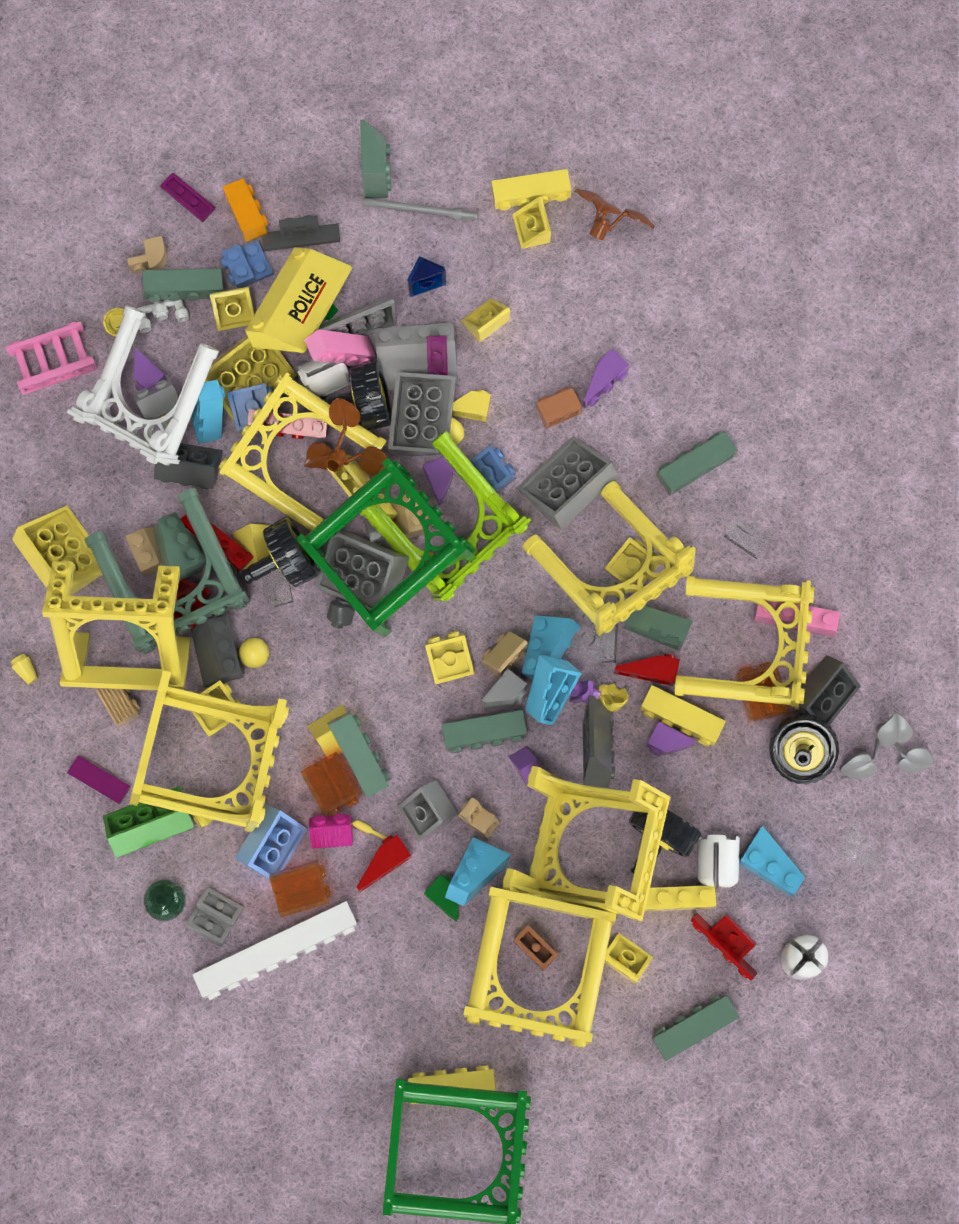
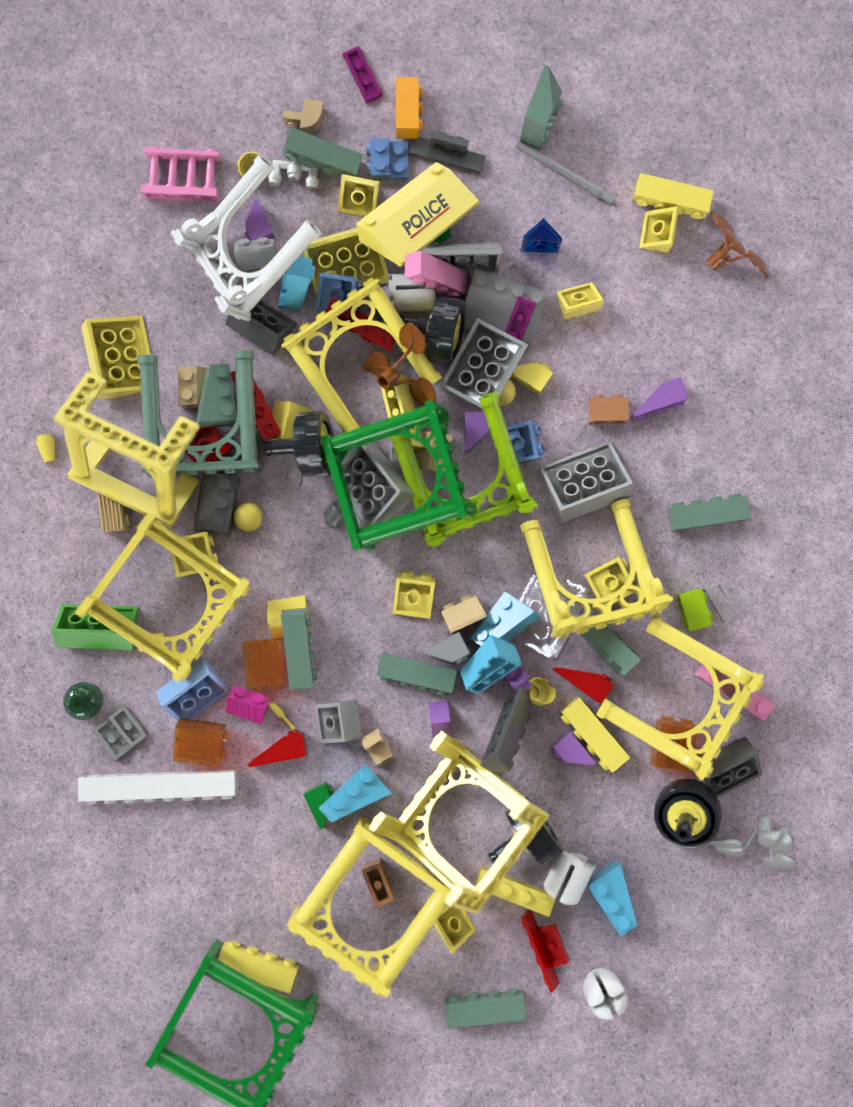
camera: 25 degrees right, 10 degrees up
(98, 779) = (70, 571): magenta tile -> none
(724, 557) = (694, 609): none -> lime brick

